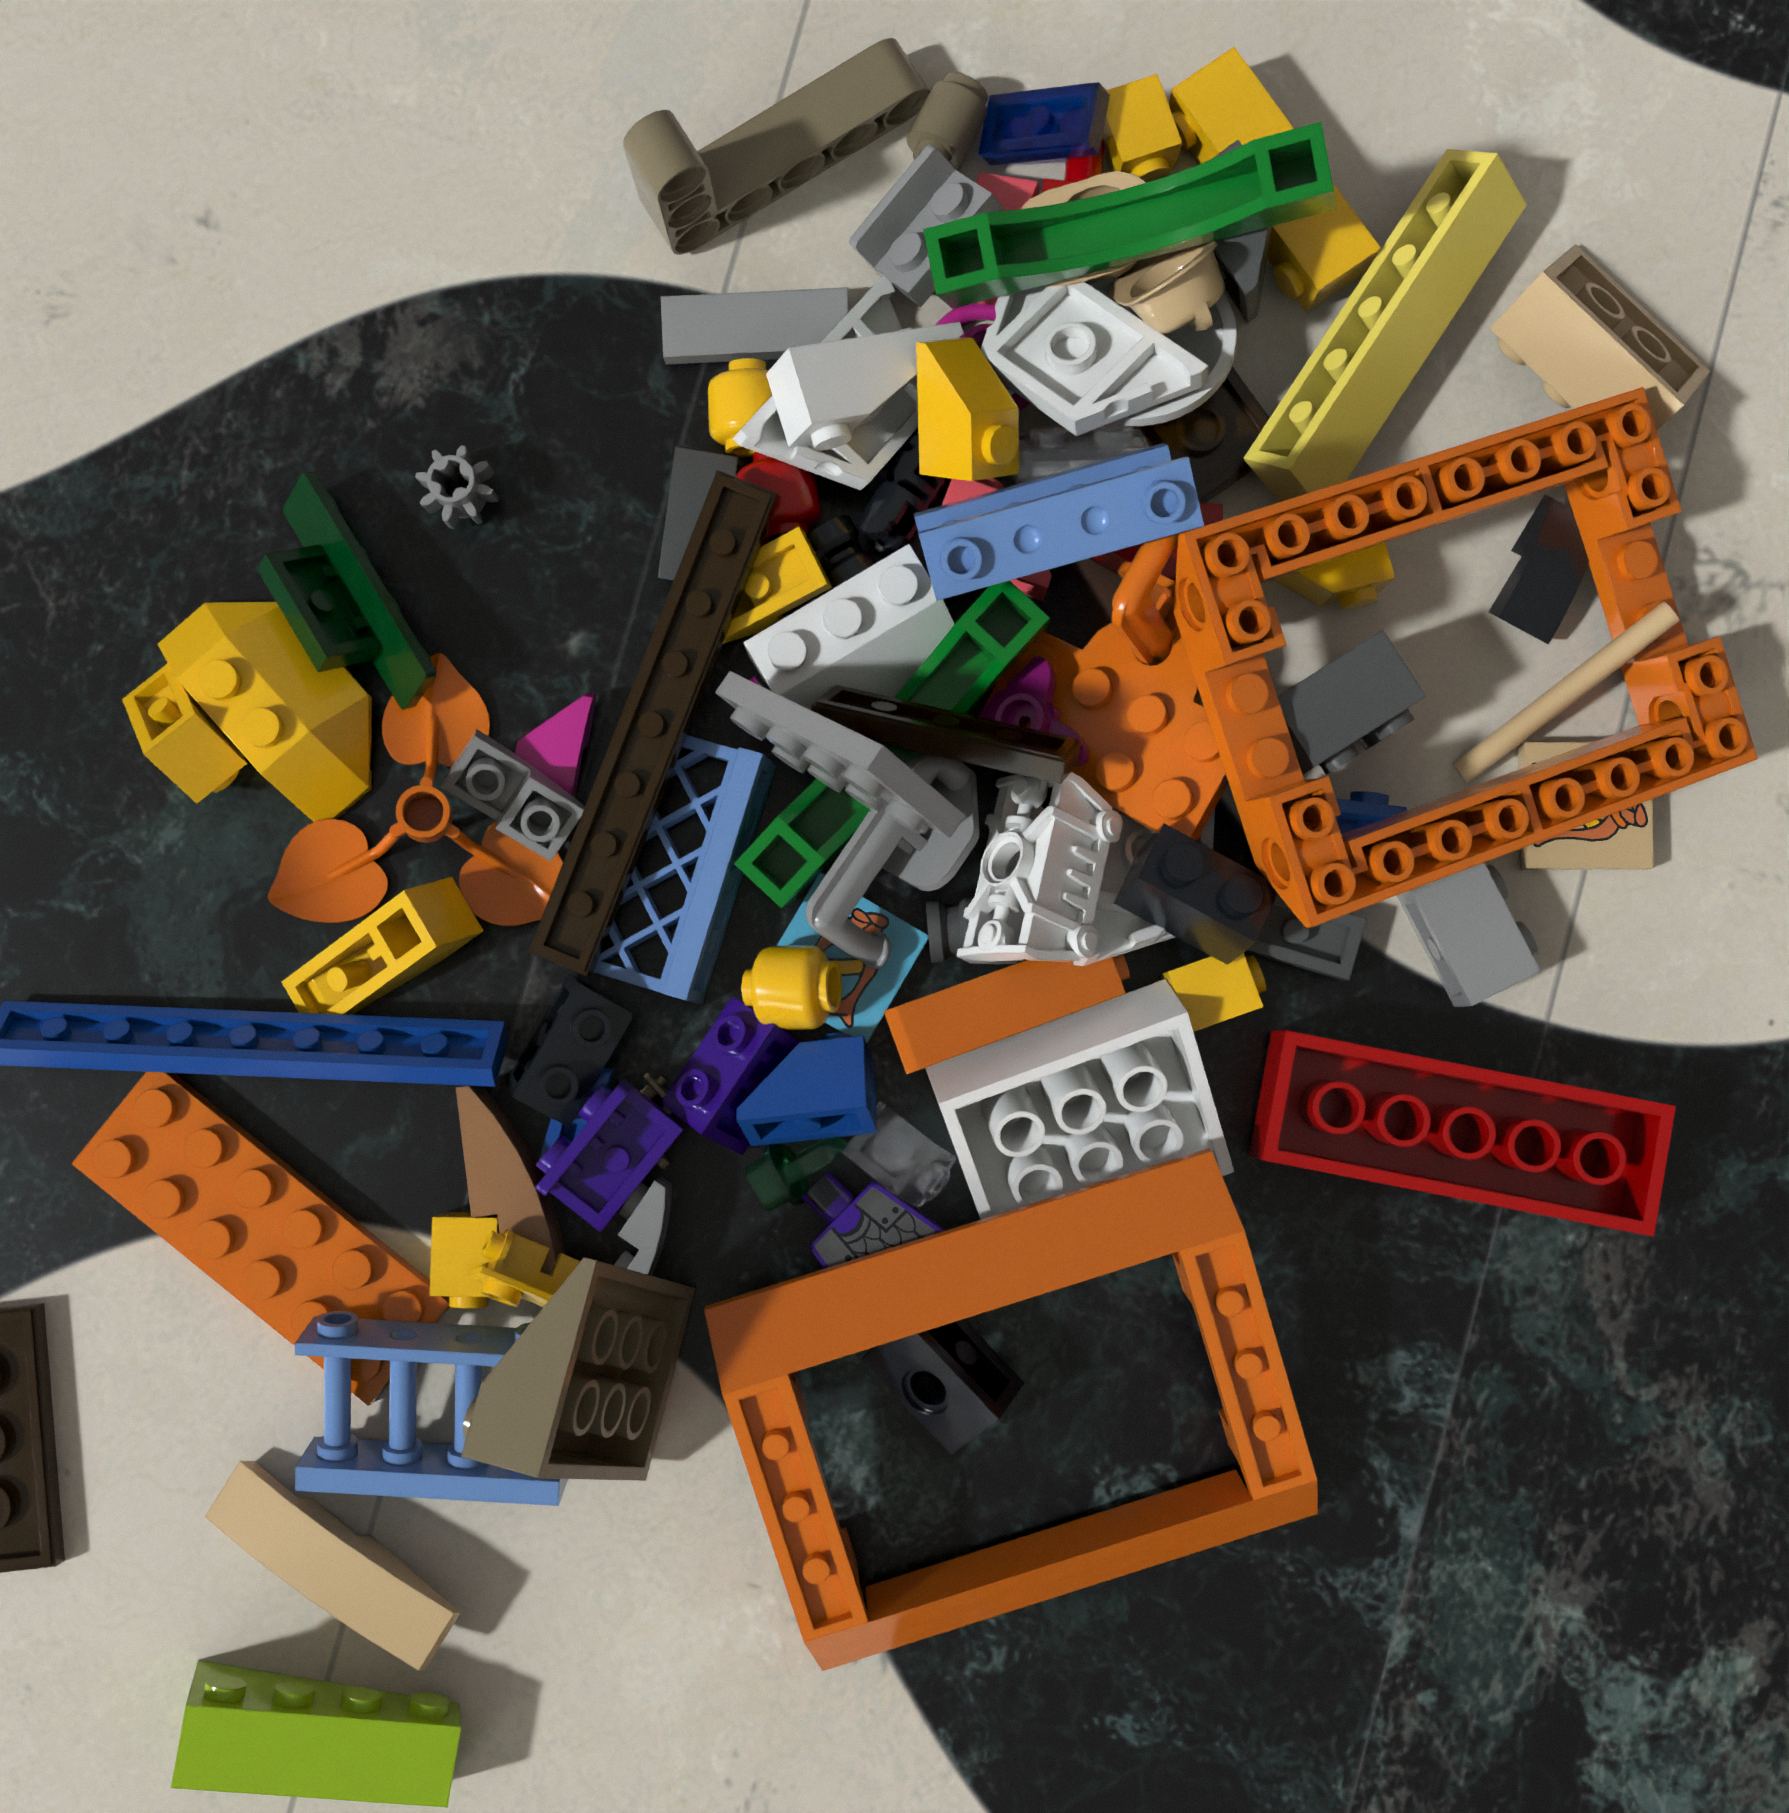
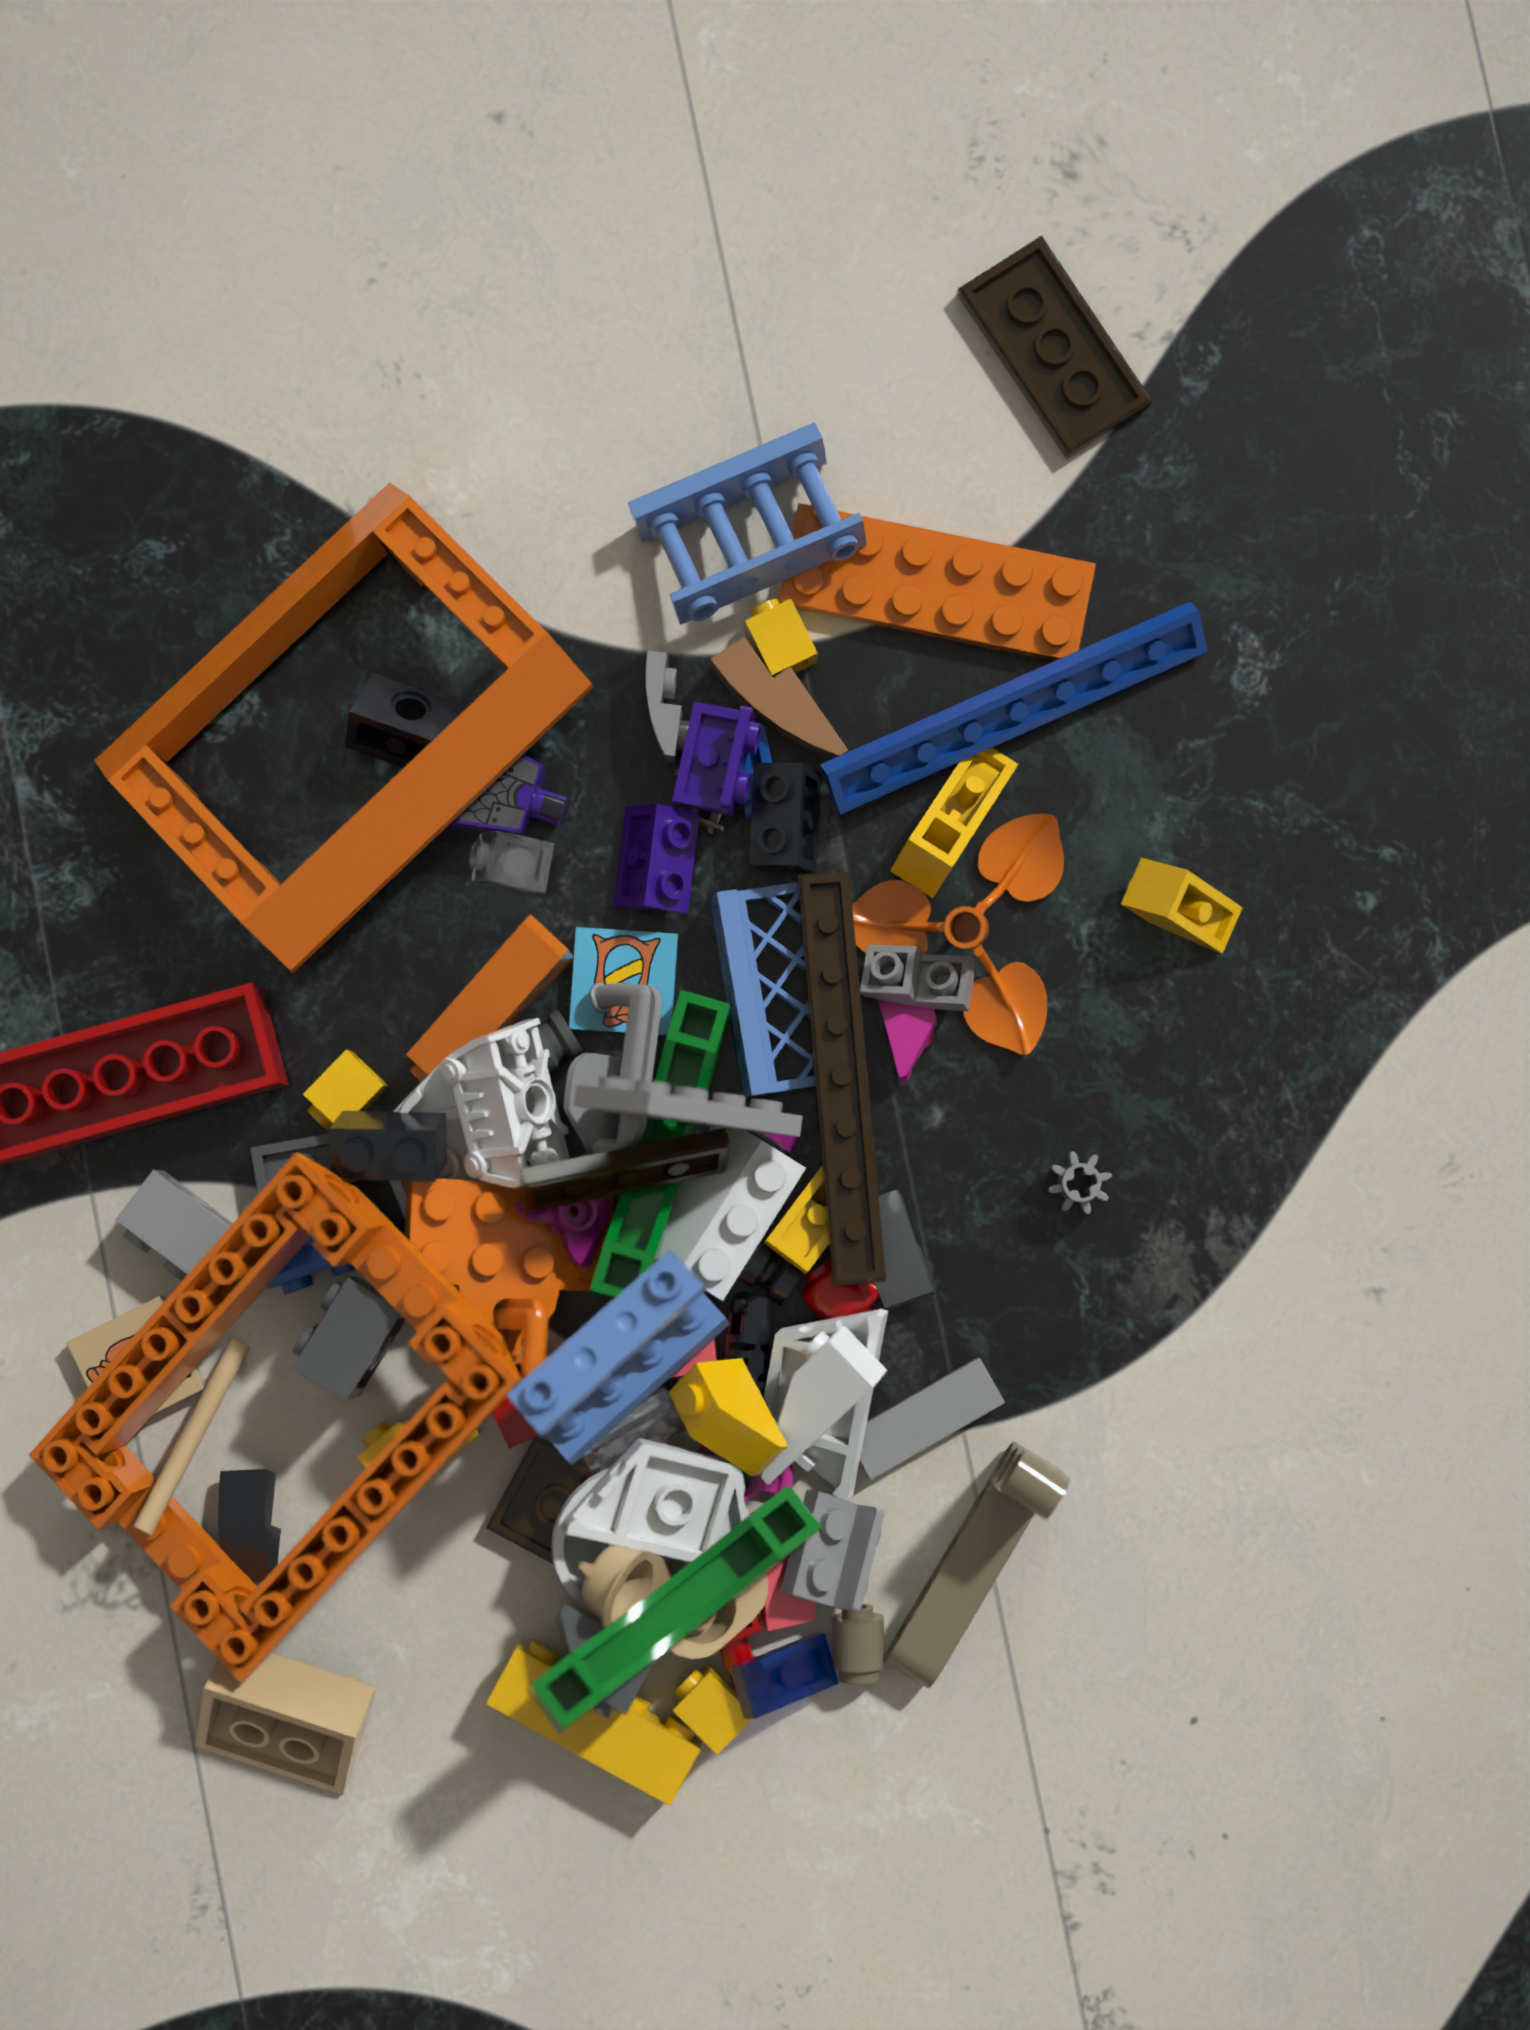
camera: 150 degrees right, 0 degrees up
(261, 689) = (1128, 963): yellow wedge -> none
(314, 1739) = (715, 266): lime wedge -> none
(332, 1566) = (765, 384): tan slope -> none
(339, 599) = (1118, 1056): dark green bracket -> none
(516, 1270) = (696, 648): yellow hinge -> none
(584, 1379) = (645, 594): dark tan slope -> none
(735, 399) = (904, 1349): yellow head -> none
(783, 1174) = (588, 808): clear green piece -> none
(792, 987) = (646, 940): yellow head -> none
(814, 1094) = (592, 874): blue slope -> none
(1079, 1101) = (399, 961): white slope -> none
(1388, 325) = (451, 1647): light yellow brick -> none

